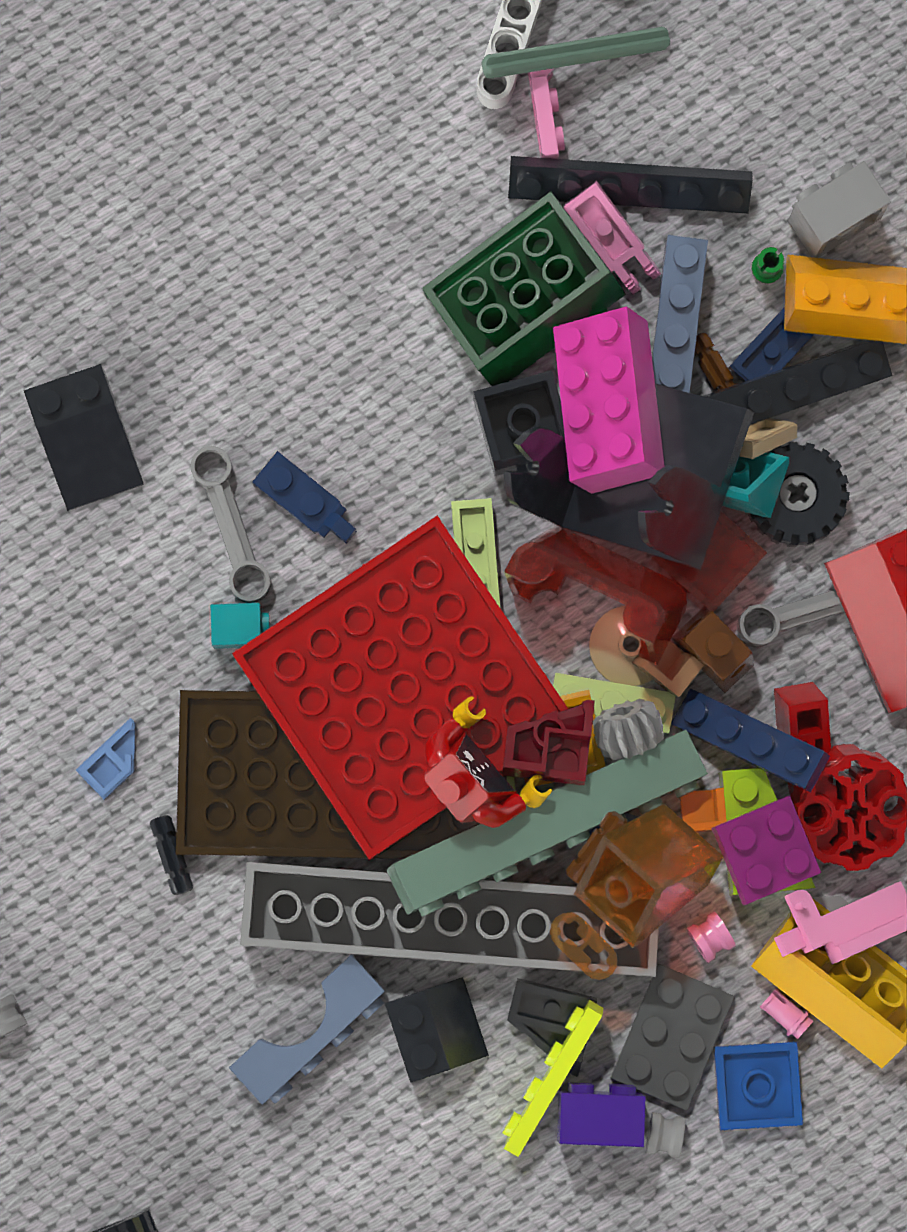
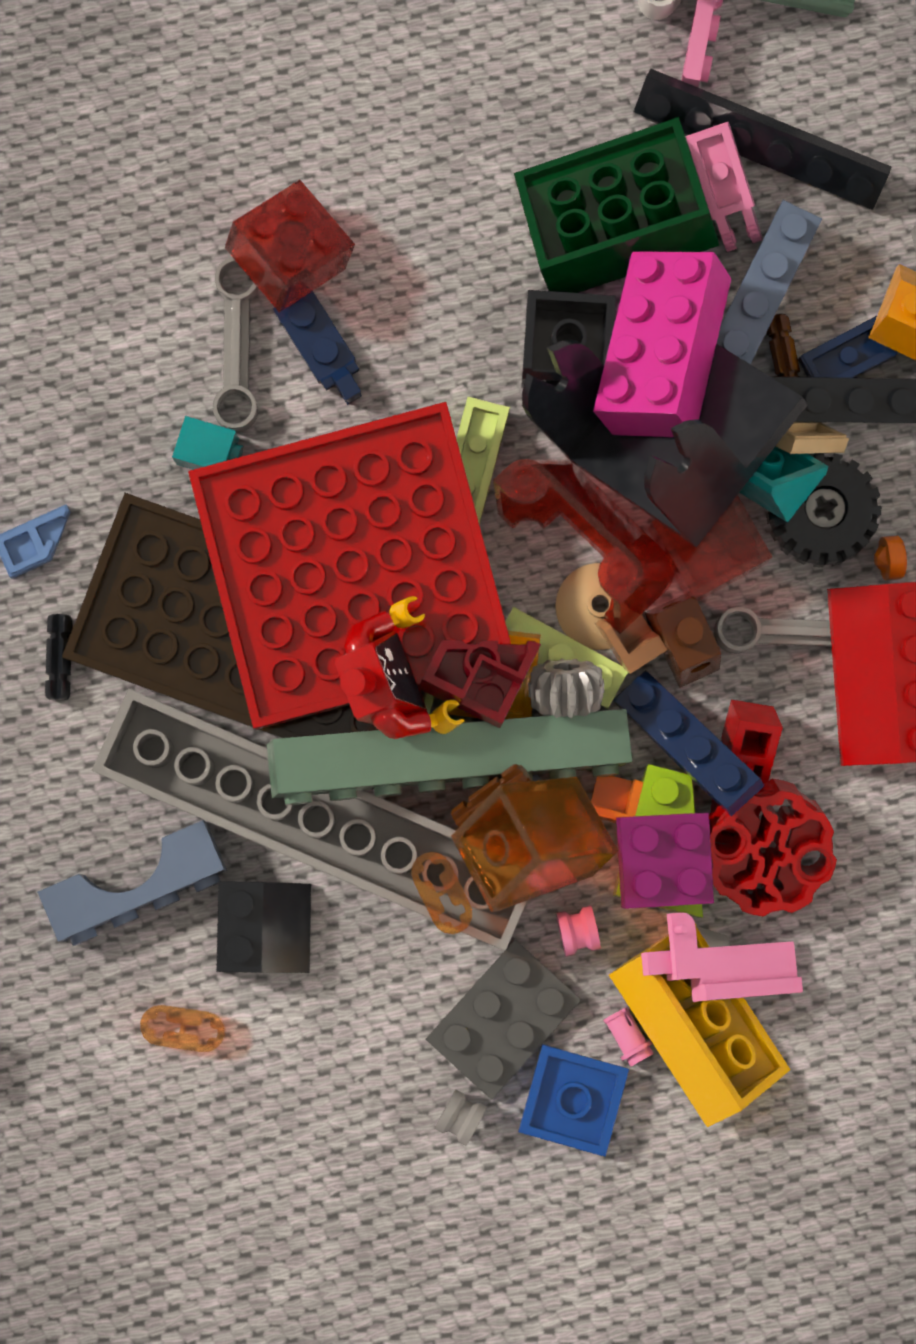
camera: 20 degrees right, 0 degrees up
(84, 437) = (119, 204): black slope -> none
(249, 422) = (289, 245): none -> clear red brick
(395, 1153) = (181, 1039): none -> clear orange beam
(543, 1013) = (388, 960): black wing -> none
(560, 1061) = (349, 1028): neon yellow plate -> none
(601, 1116) = (399, 1075): dark purple brick -> none
(768, 275) = (874, 277): green pin -> none
(870, 516) = (891, 558): none -> orange tile

